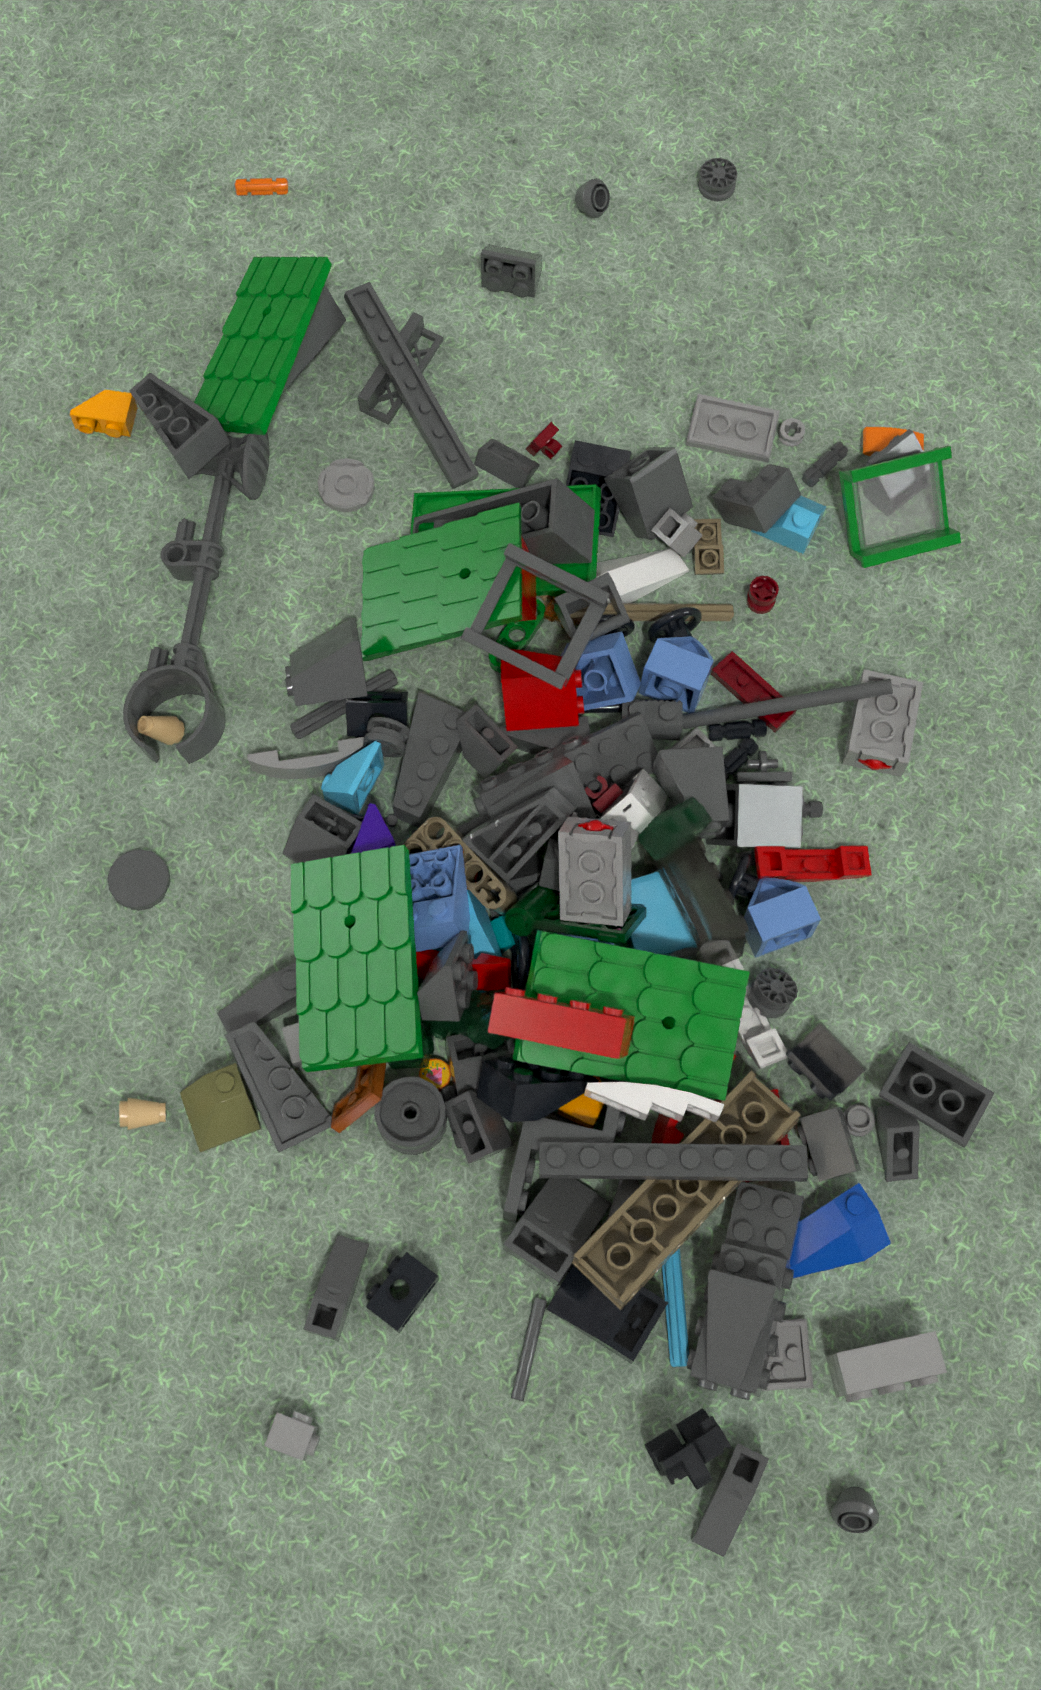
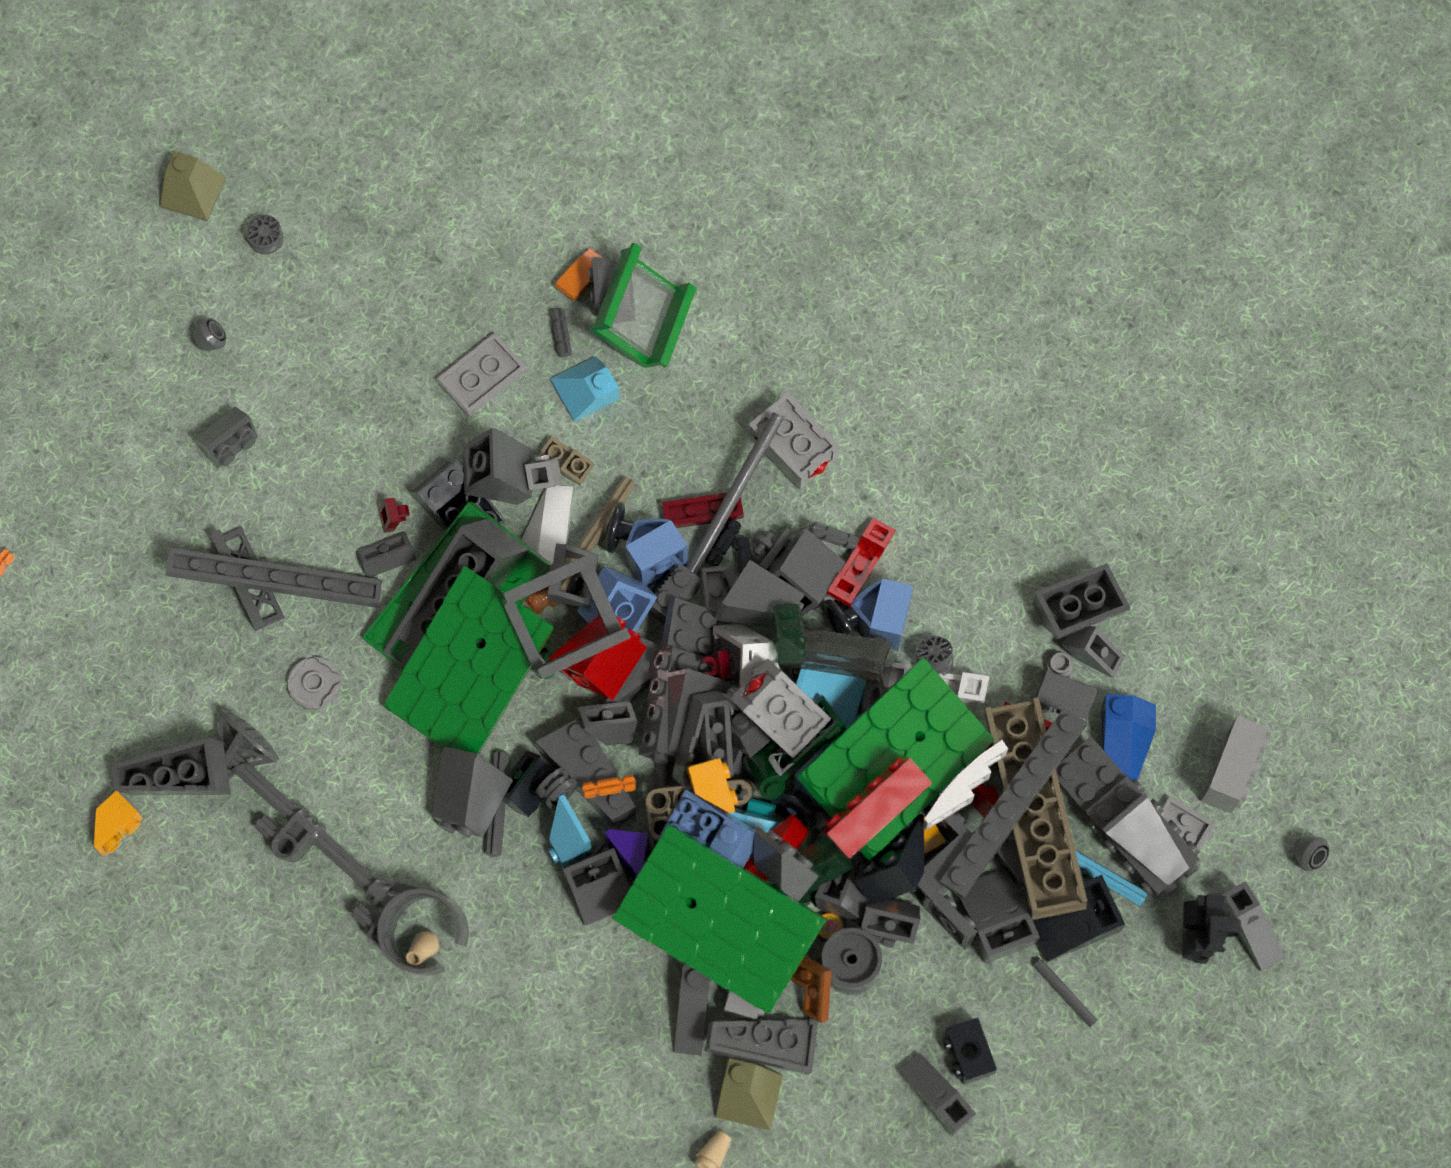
camera: 55 degrees left, 0 degrees up
(139, 879) = (528, 1043): dark grey tile -> none
(268, 340) = (158, 661): green piece -> none
(269, 762) = (509, 886): light grey slope -> none
(418, 779) = (608, 786): none -> orange axle
(477, 861) = (710, 783): none -> light orange slope
(713, 98) = (191, 186): none -> olive slope
(759, 501) = (559, 399): dark grey slope -> none
(764, 588) = (633, 445): dark red wheel -> none
(785, 428) = (510, 336): light grey bush -> none
(819, 821) = (834, 535): none -> dark grey axle
(825, 1063) = (1007, 657): black bracket -> none

